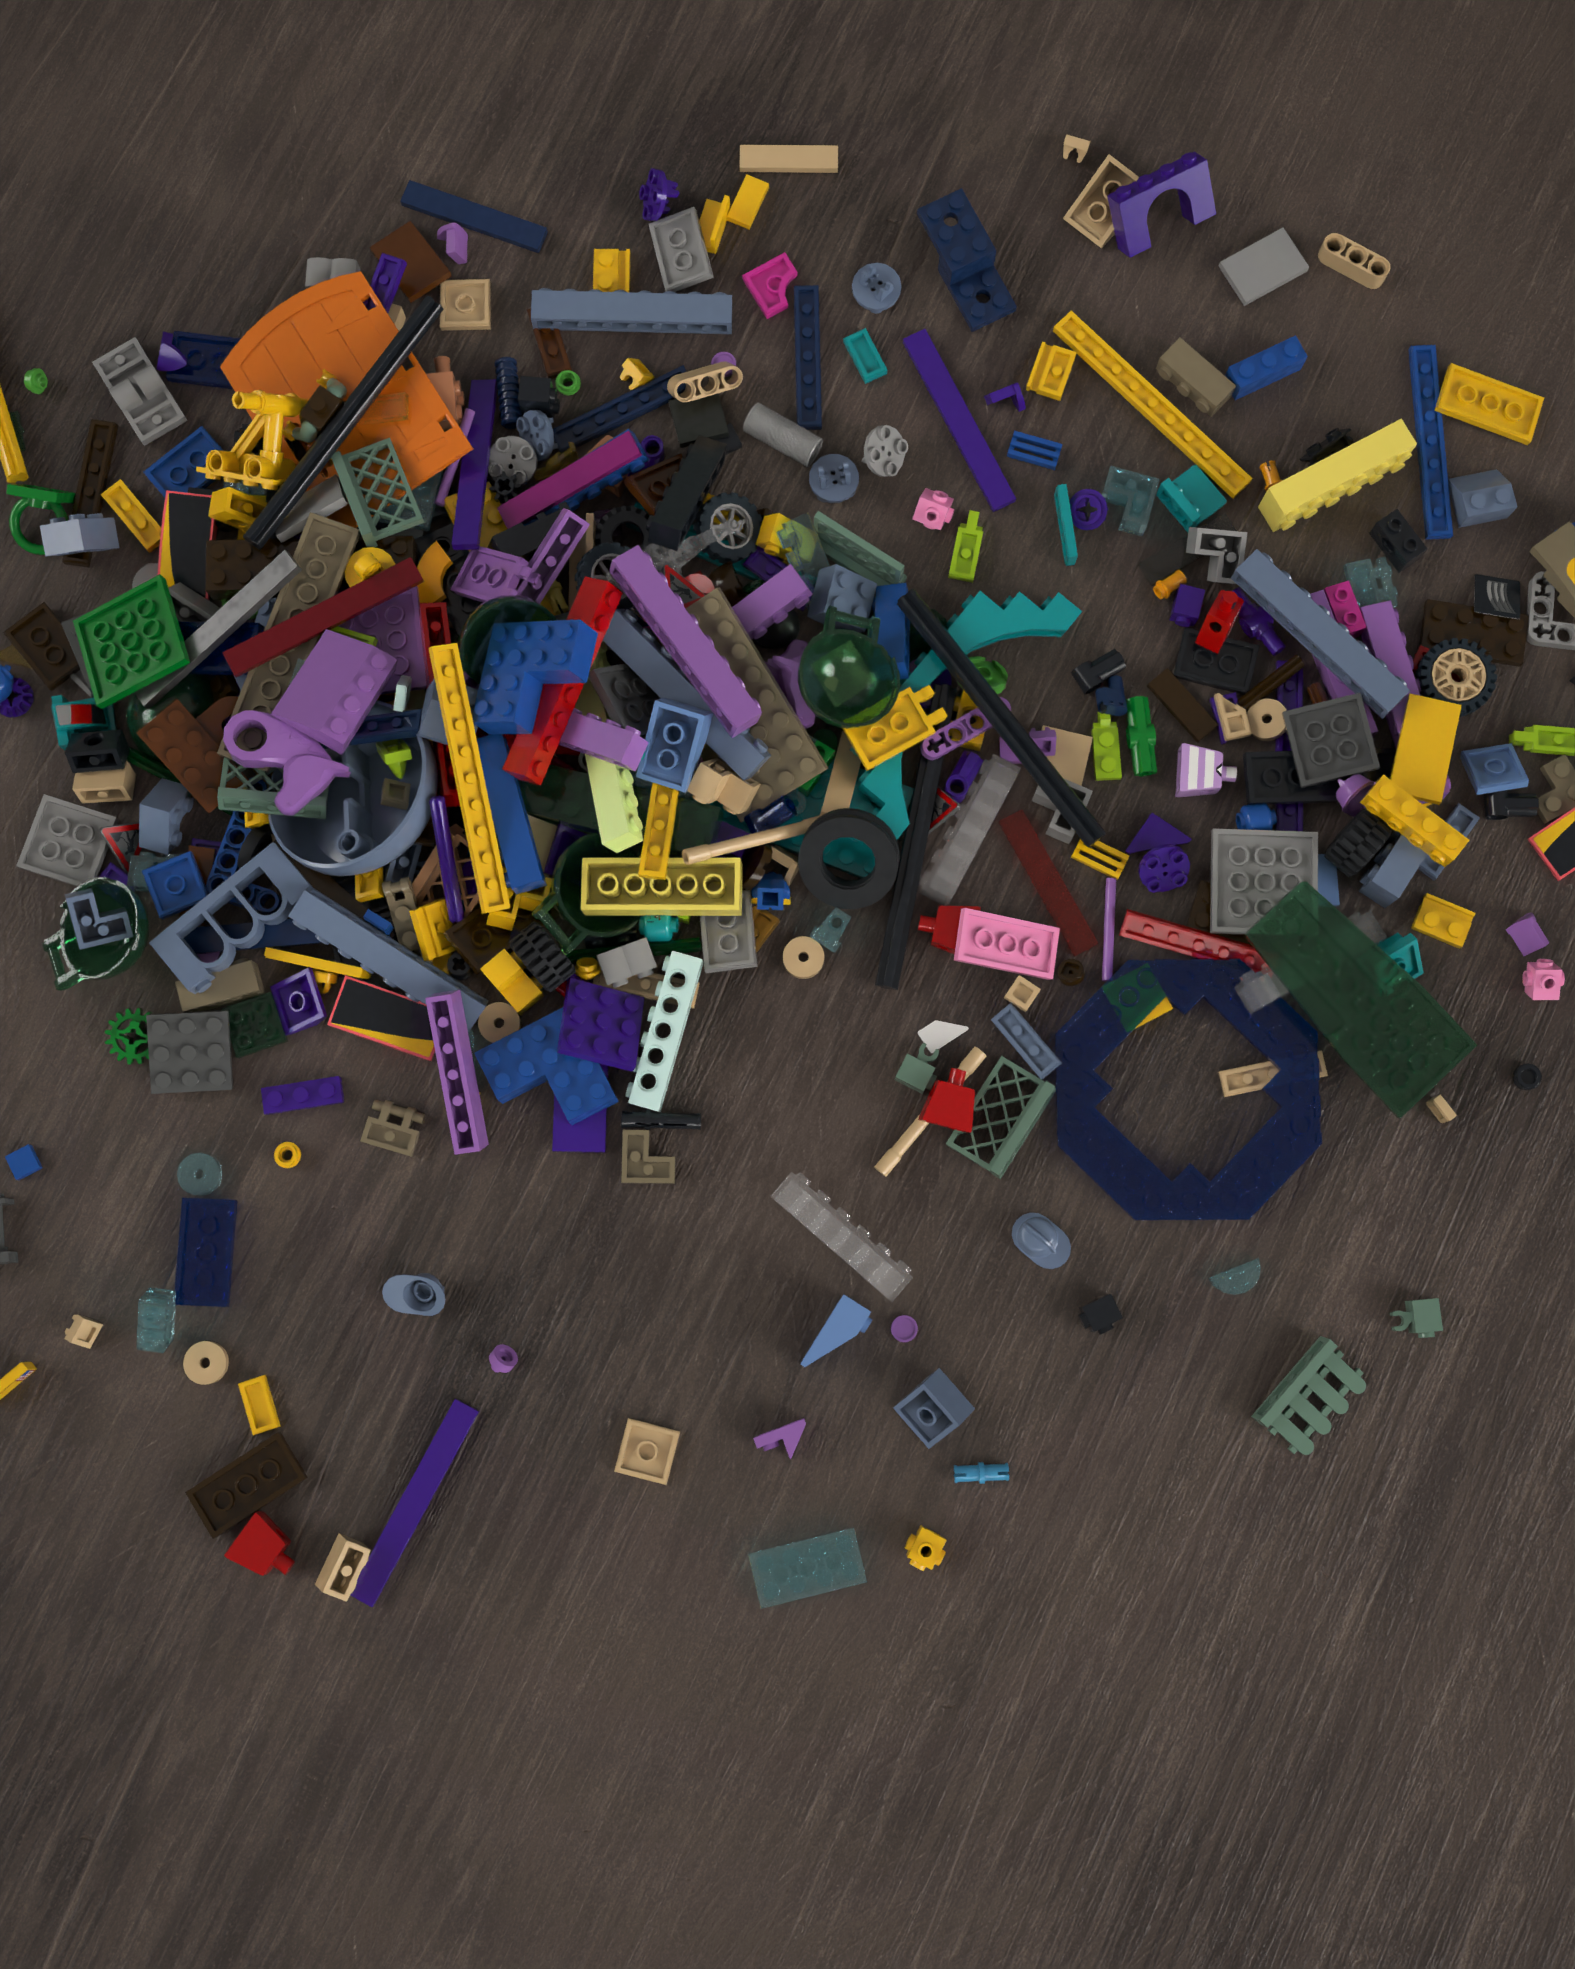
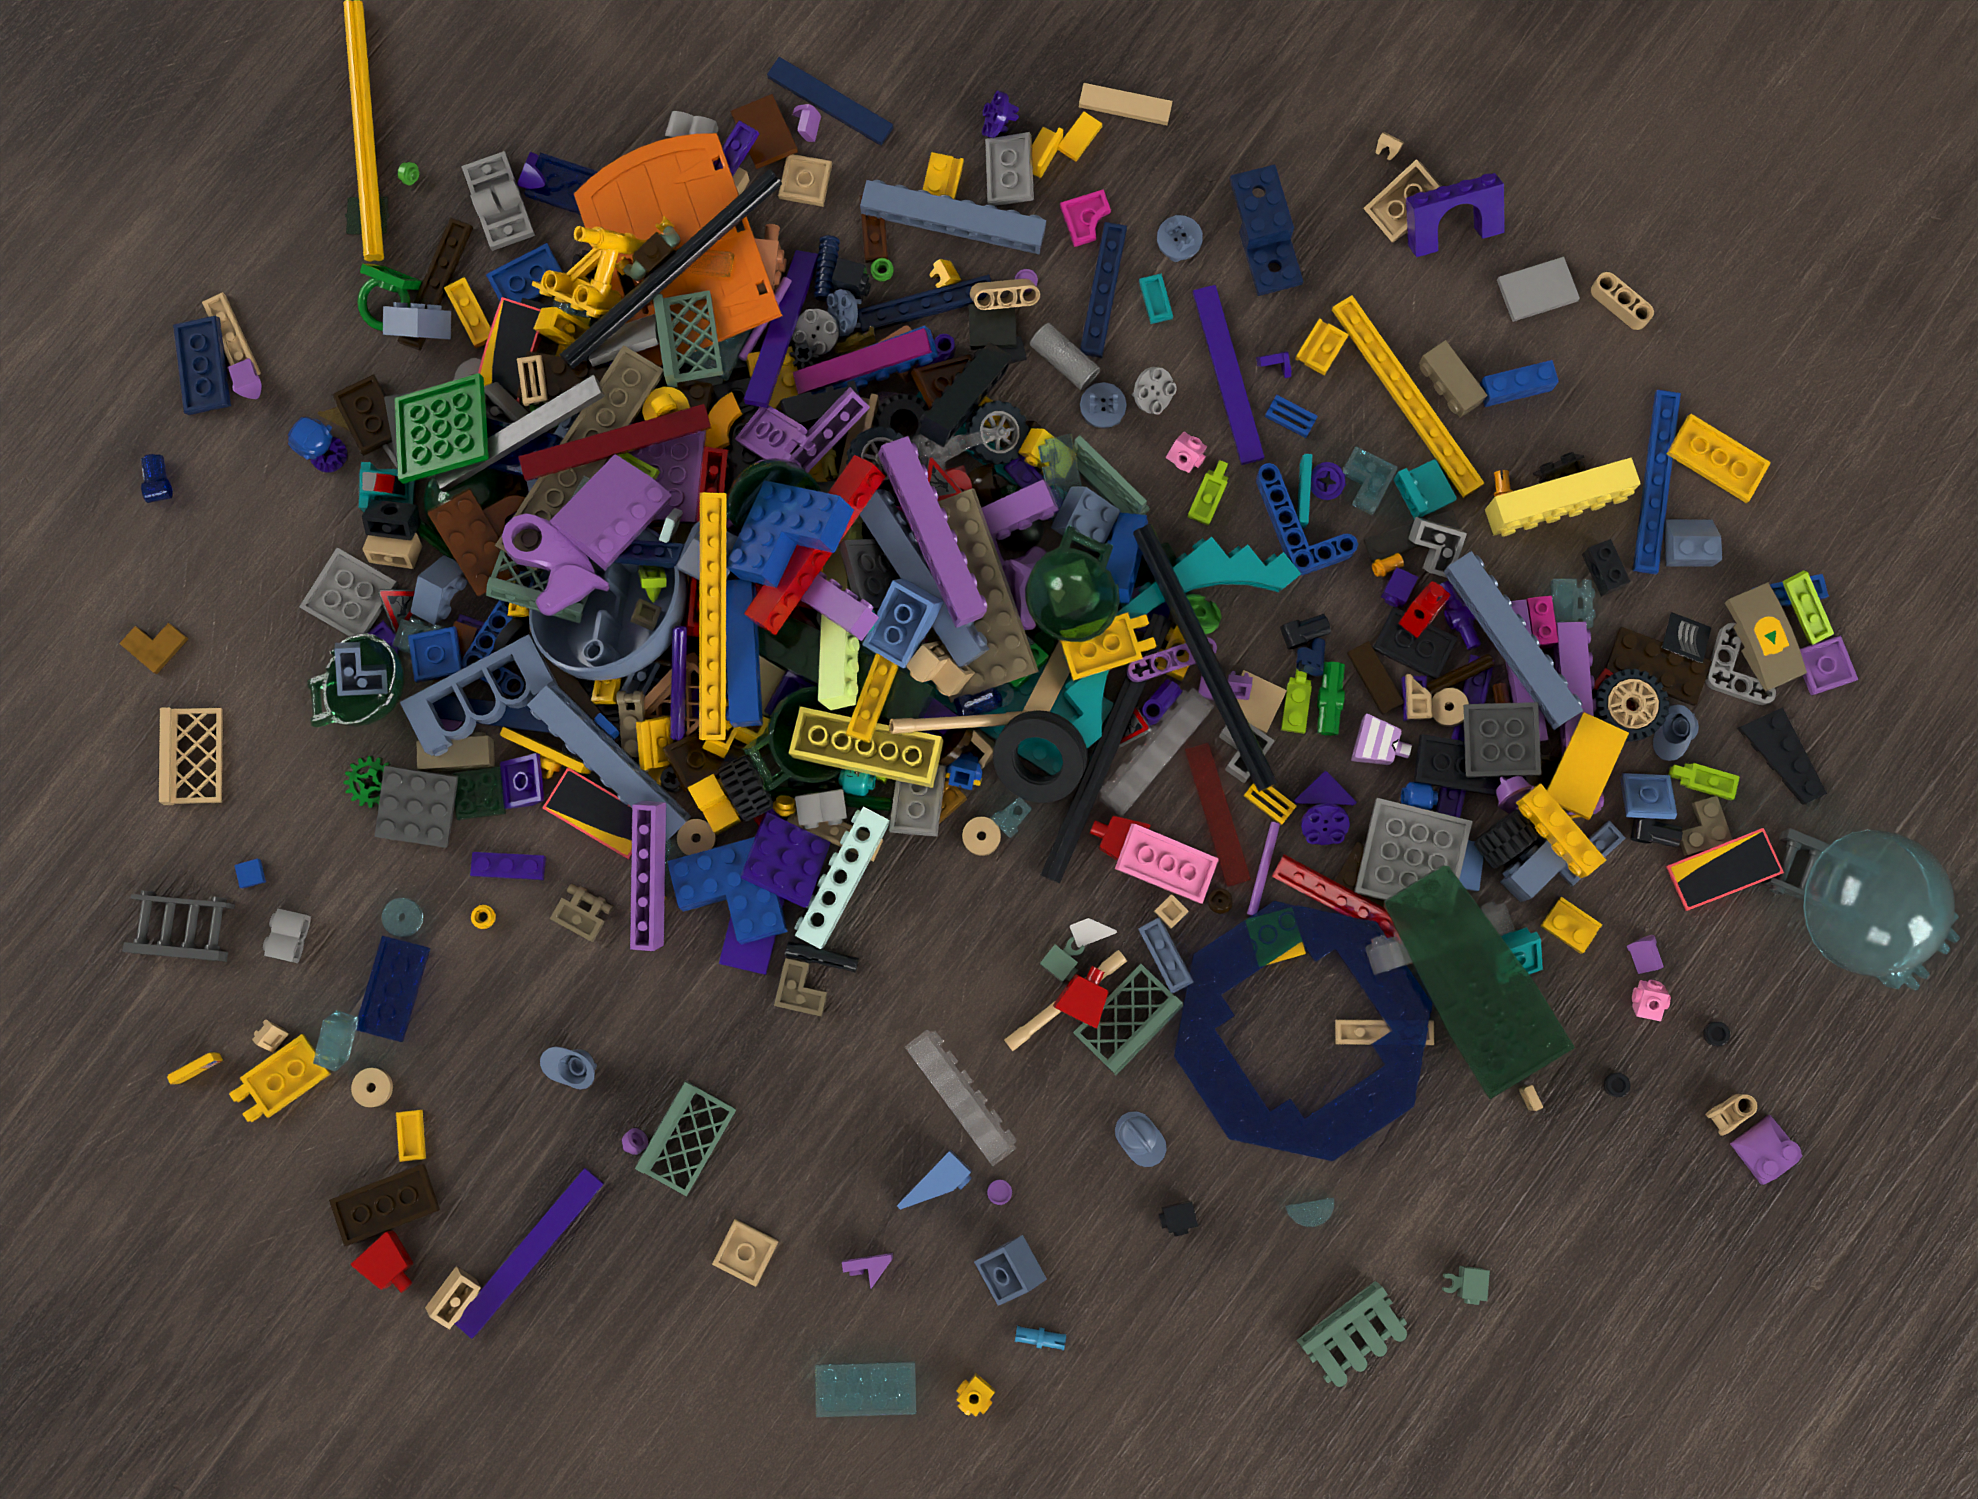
camera: 15 degrees right, 0 degrees up
(78, 1220) = (286, 935): none -> light grey brick
(104, 1375) = (280, 1079): none -> yellow tile
(227, 589) = (535, 398): none -> tan tile
(534, 1336) = (667, 1126): none -> sand green fence
(1064, 566) = (1294, 529): none -> blue beam
(1509, 697) = (1676, 733): none -> sand blue piece

